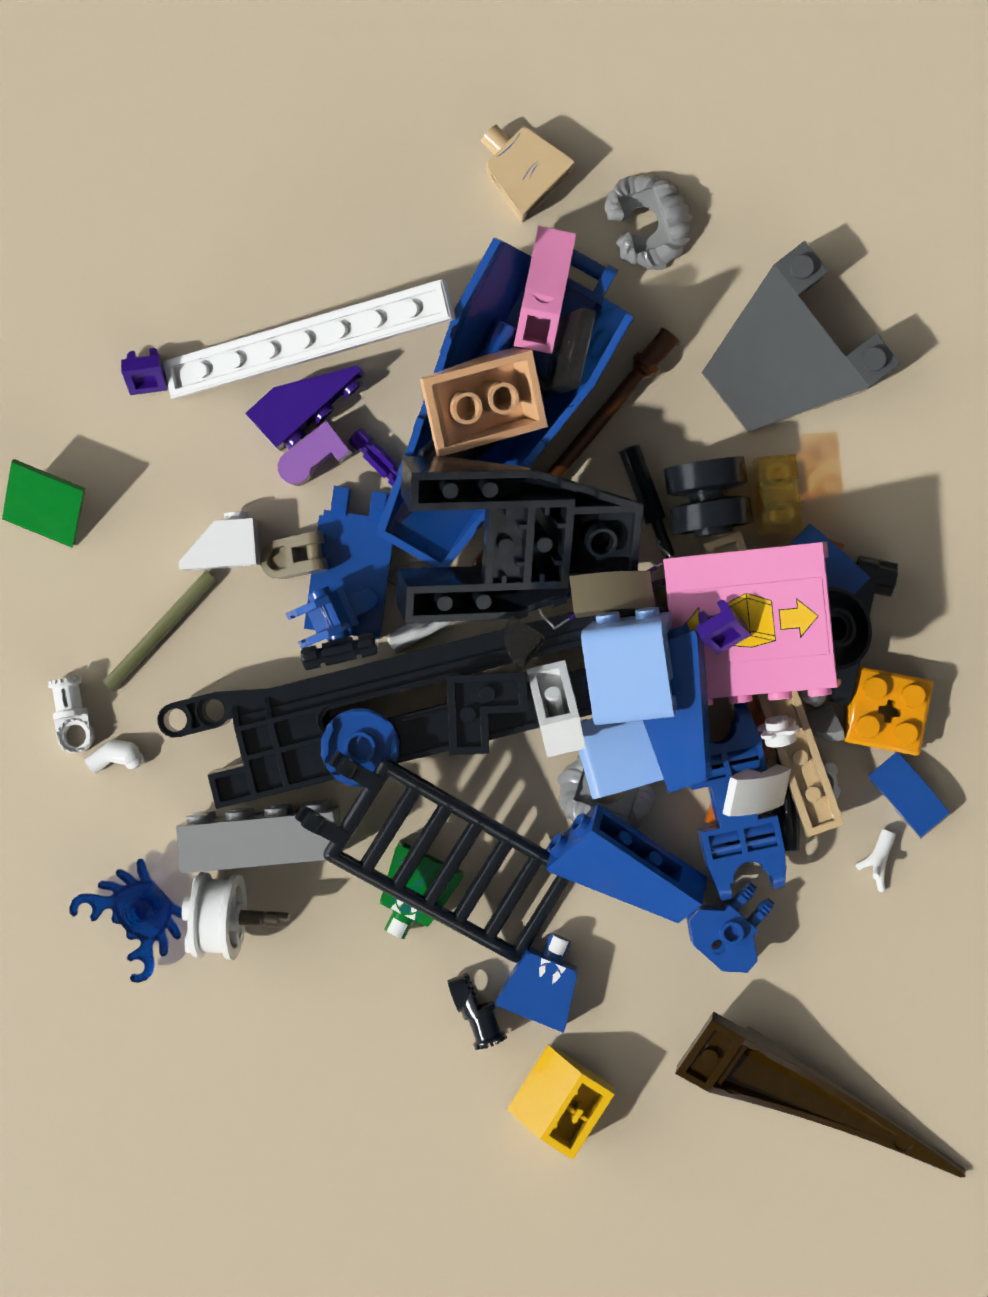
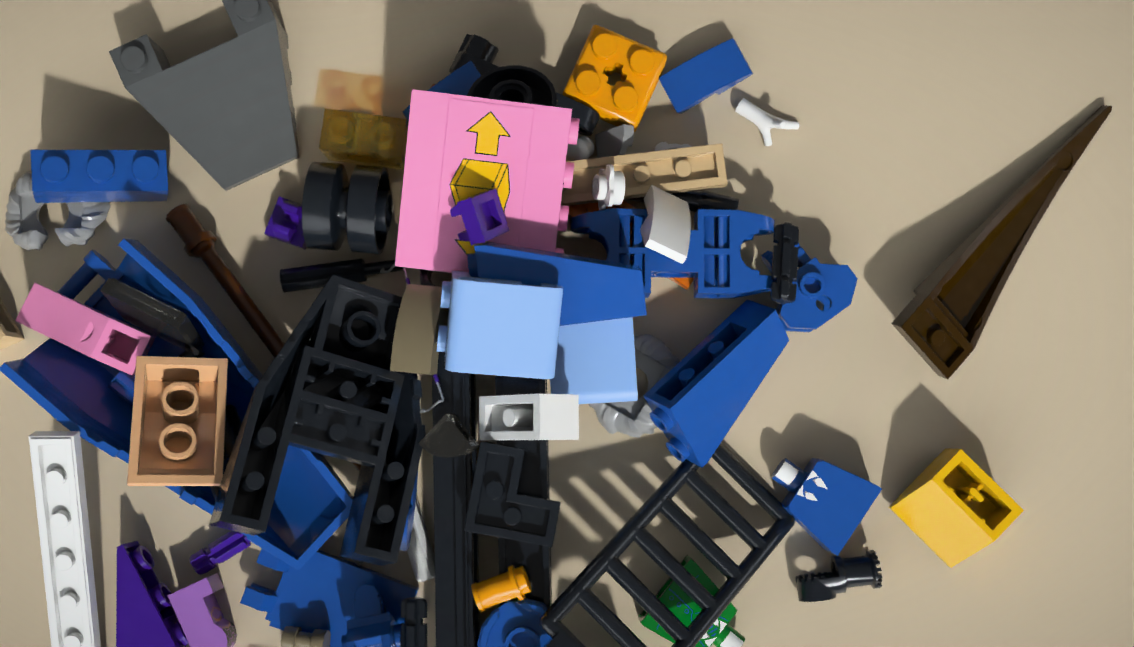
camera: 75 degrees left, 5 degrees down
(404, 718) = (501, 588): none -> light orange pin
(684, 442) = (286, 223): none -> dark purple tile
(687, 263) = (99, 176): none -> blue brick
(745, 904) = (784, 263): none -> black axle

